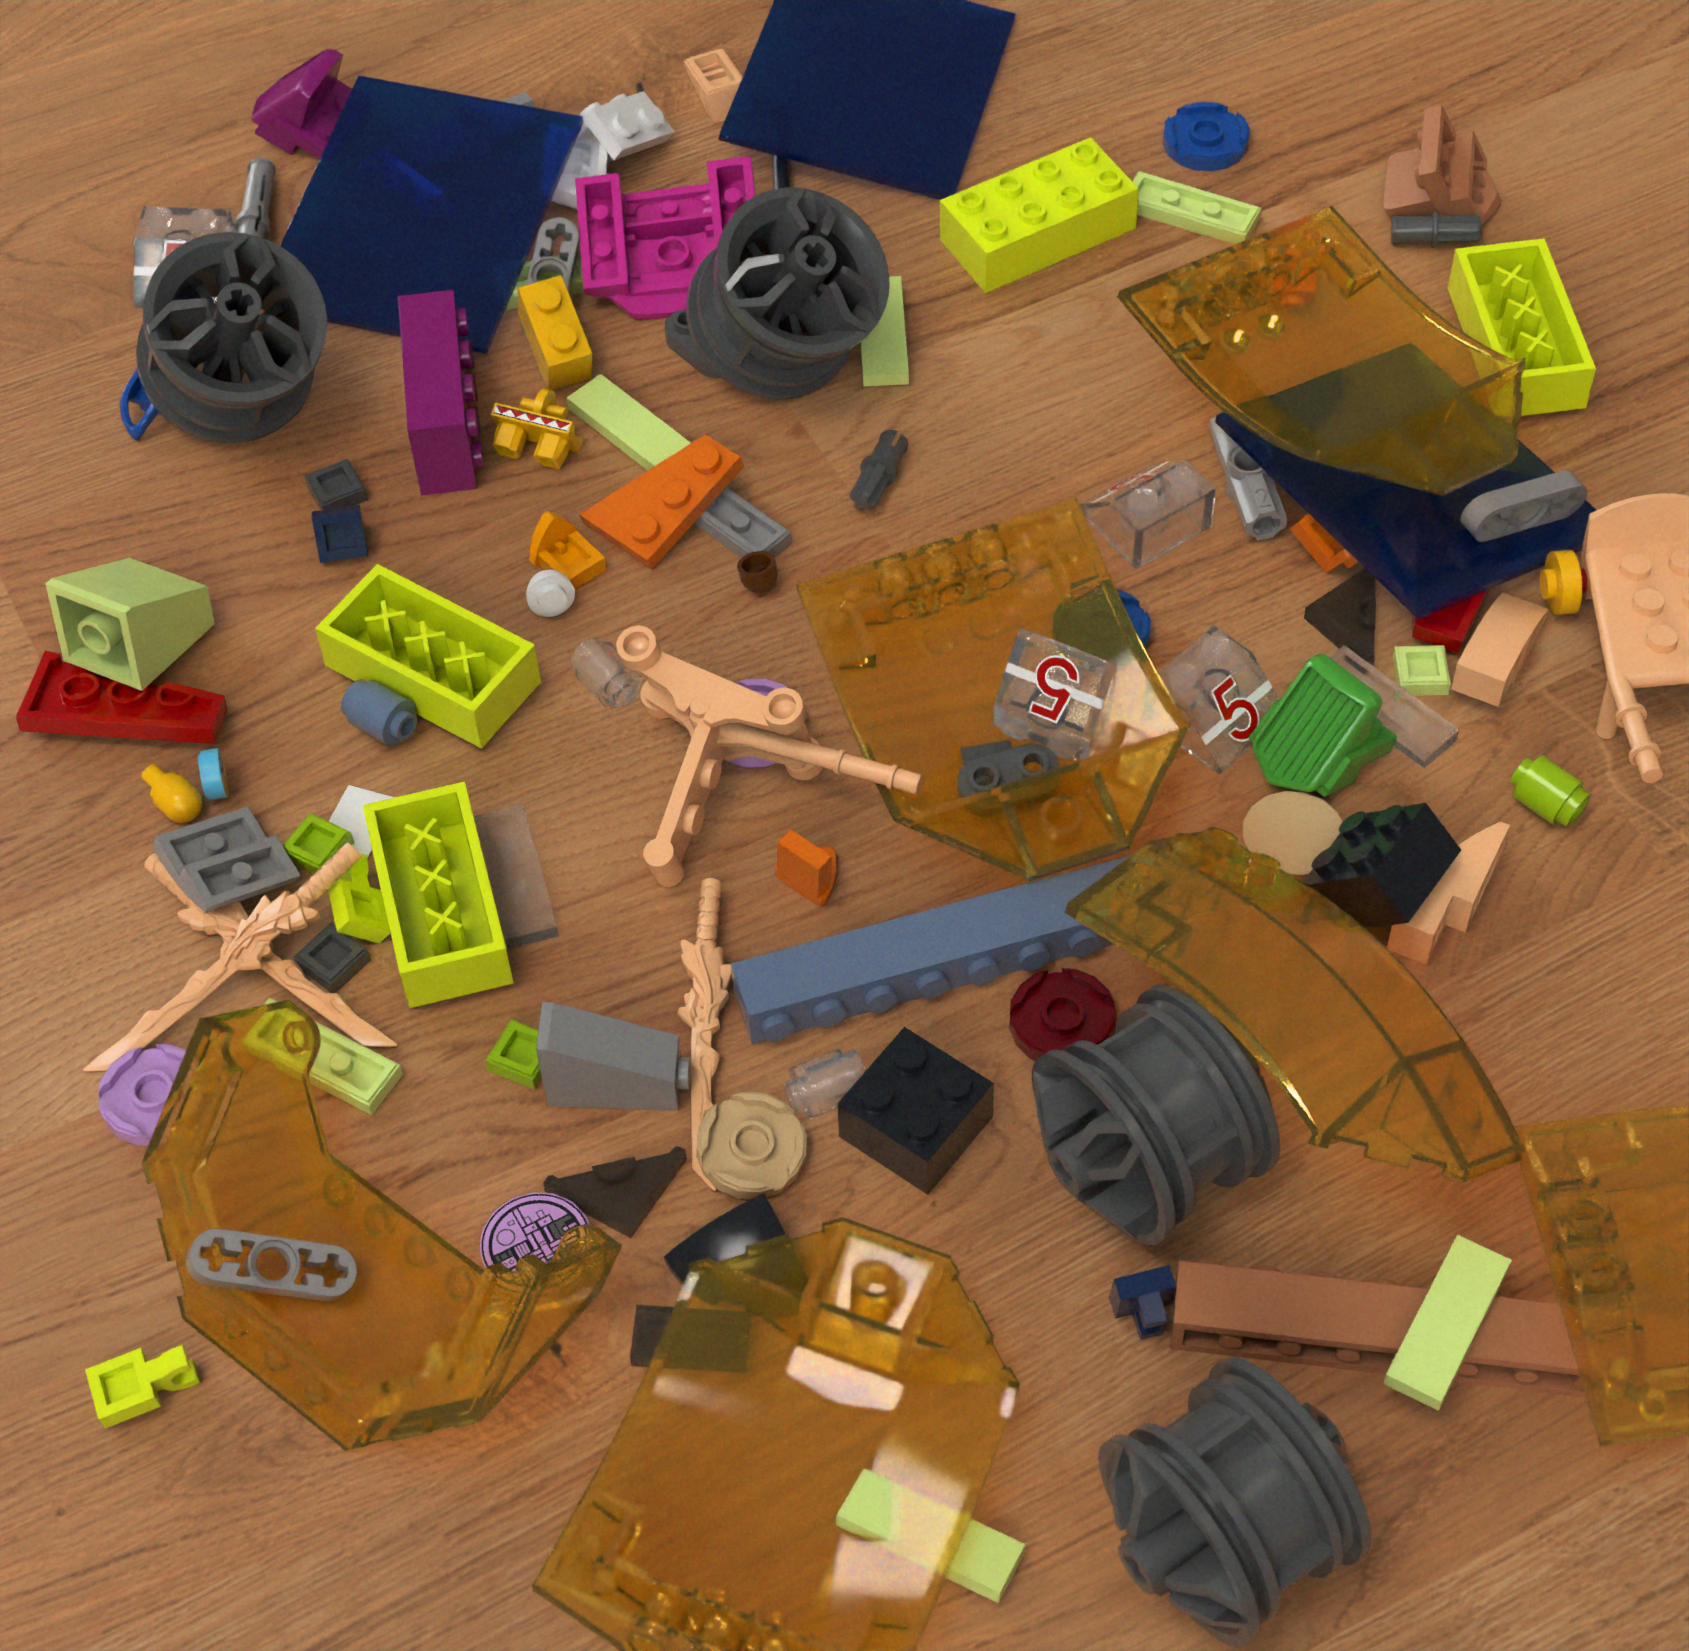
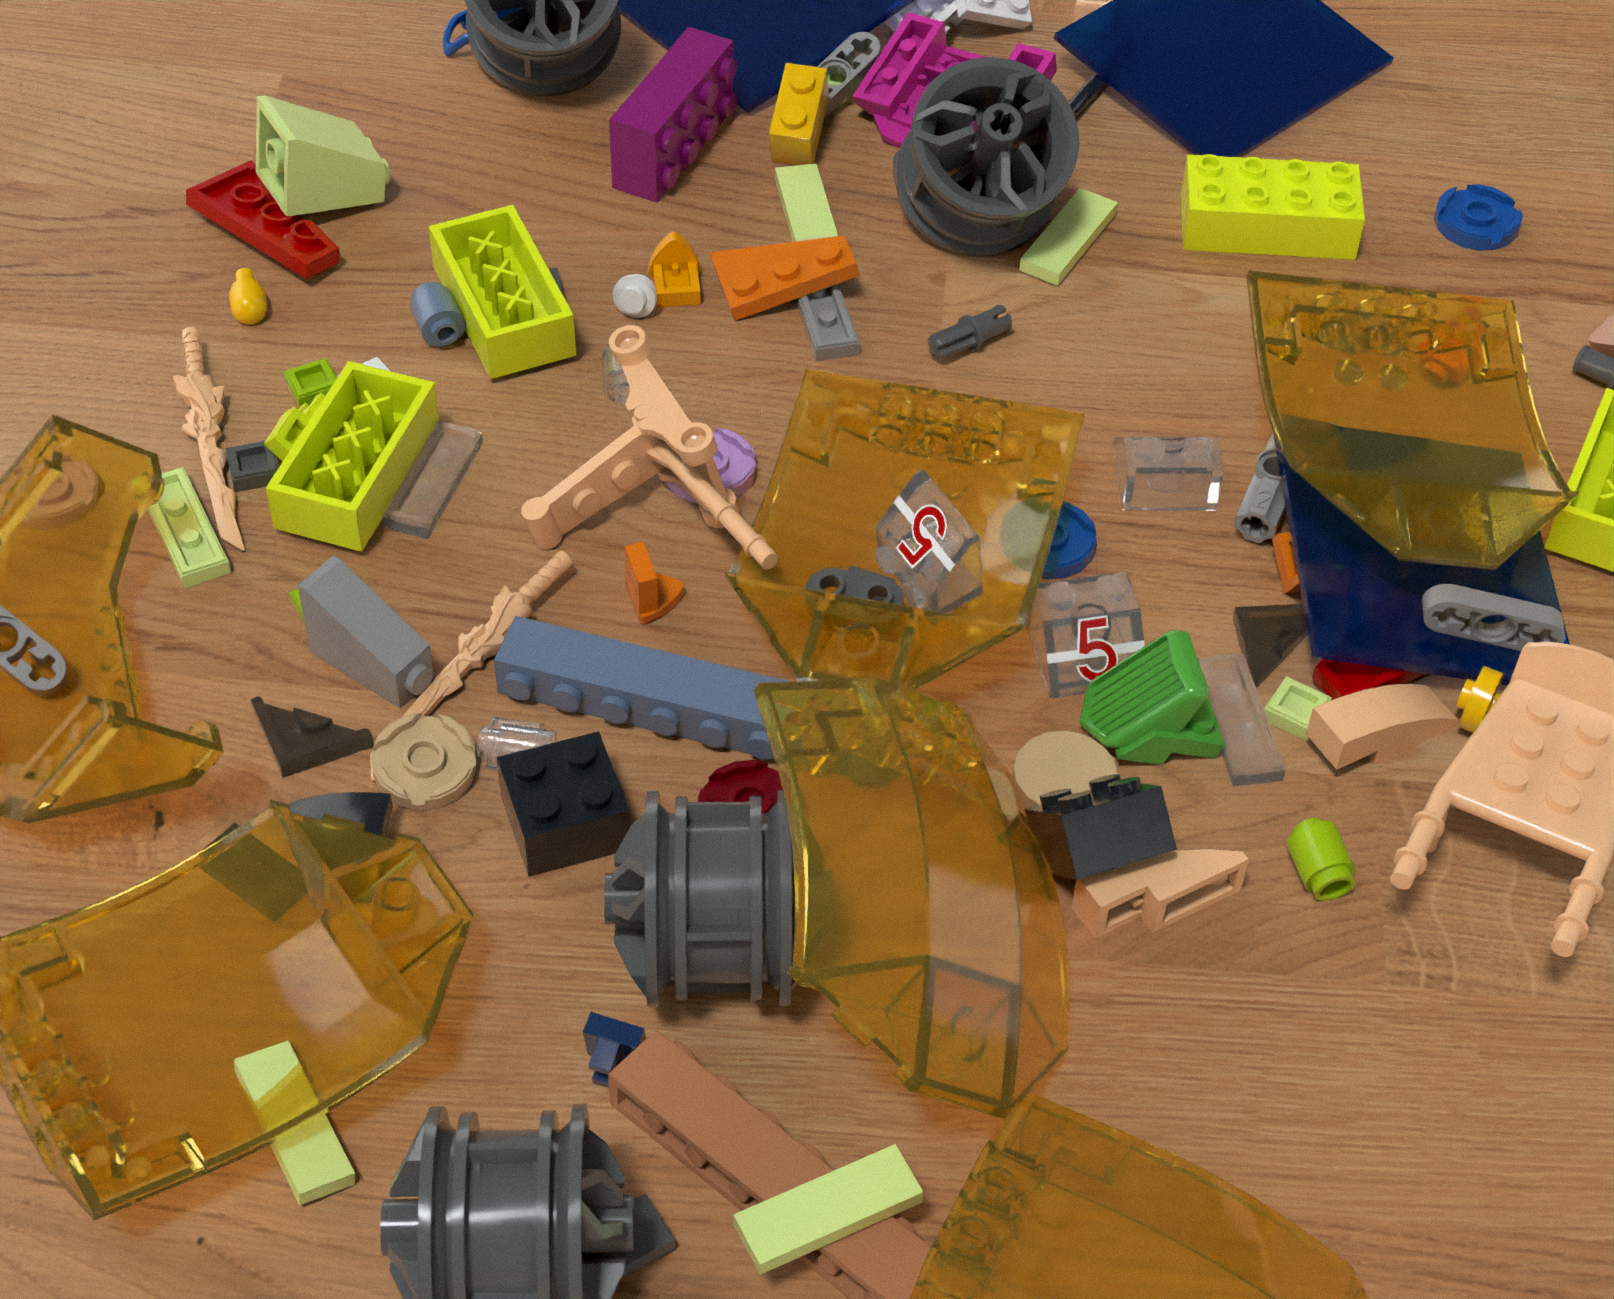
camera: 30 degrees right, 5 degrees down
(213, 774) = (283, 296): medium azure tile -> none
(224, 860) = (236, 356): light grey slope -> none
(245, 952) = (223, 411): light nougat sword -> none
(336, 486) = (553, 152): dark grey tile -> none
(339, 533) = (522, 180): dark blue tile -> none
(528, 1227) = (236, 729): tile -> none
(537, 422) = (734, 173): yellow hips -> none
(758, 571) = (806, 355): reddish brown hinge -> none
(1195, 209) = (1410, 259): yellowish green tile -> none

